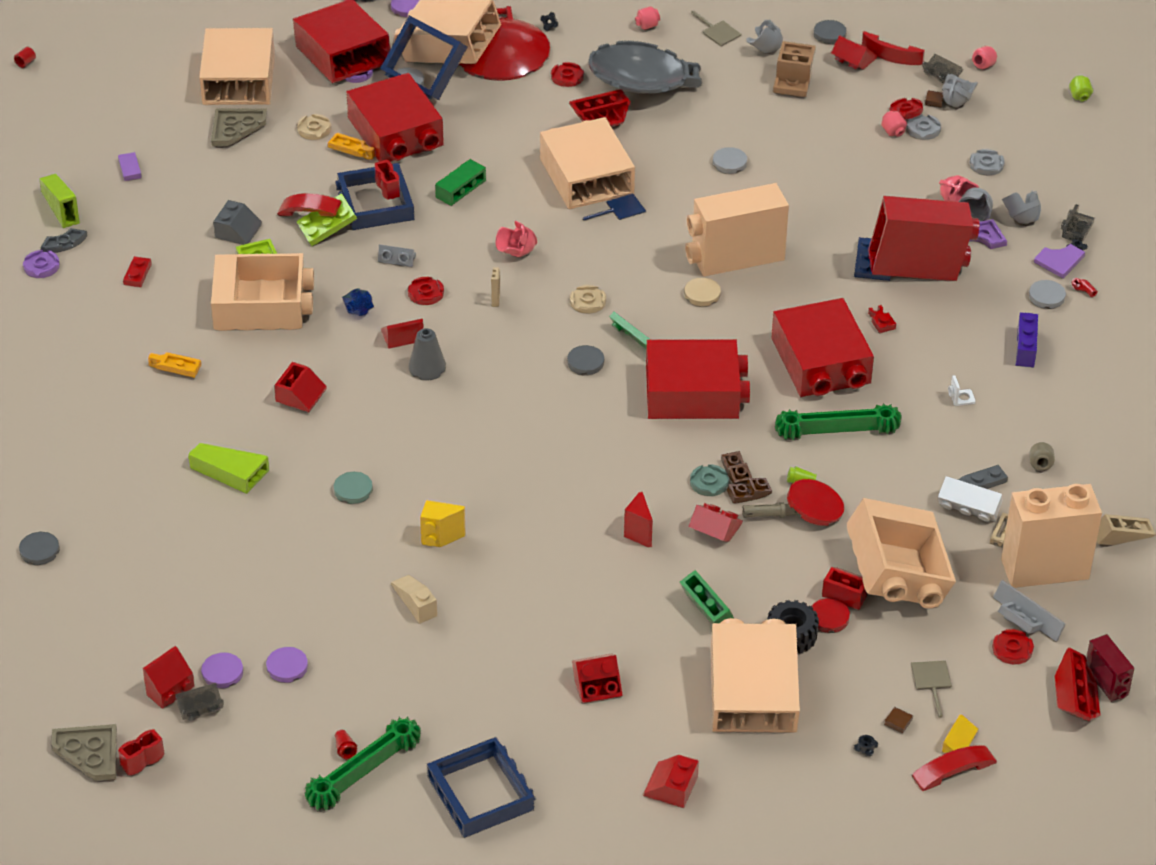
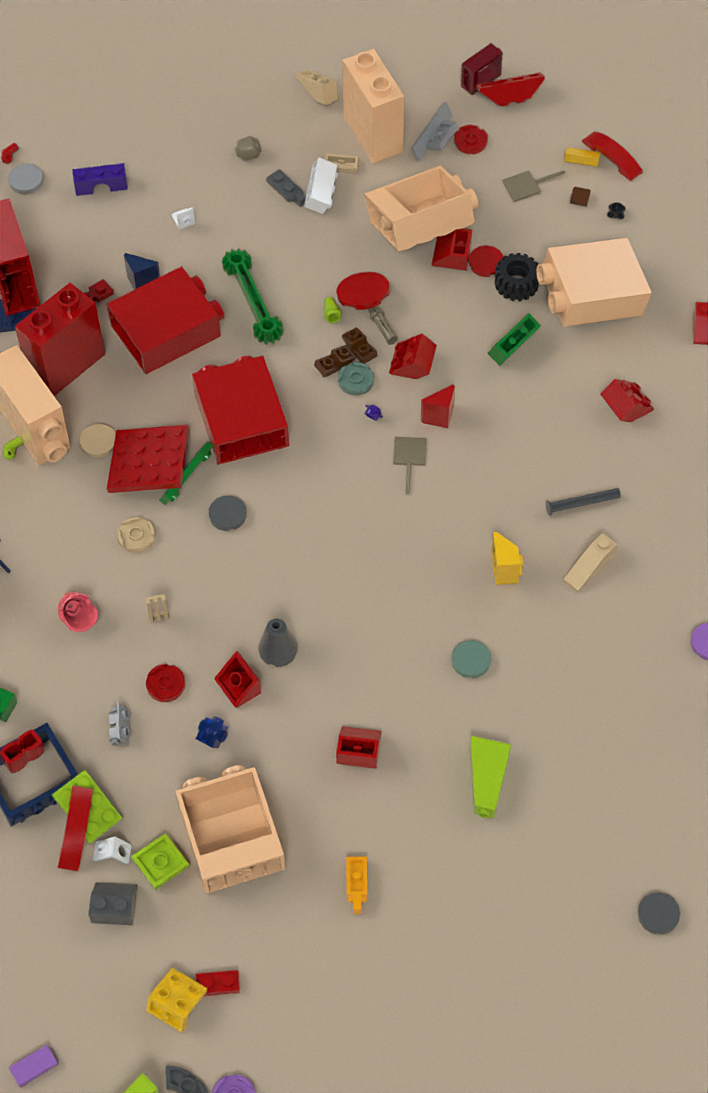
camera: 105 degrees left, 15 degrees up
(134, 240) = (175, 999): none -> yellow bracket
(285, 228) = (109, 848): none -> white bracket
(492, 584) = (582, 500): none -> dark grey axle
(602, 501) = (409, 452): none -> dark tan piece
(659, 479) = (373, 412): none -> dark purple plate
(662, 311) = (148, 459): none -> red plate
(803, 253) = (62, 337): none -> red brick
(887, 340) = (140, 270): none -> dark blue slope

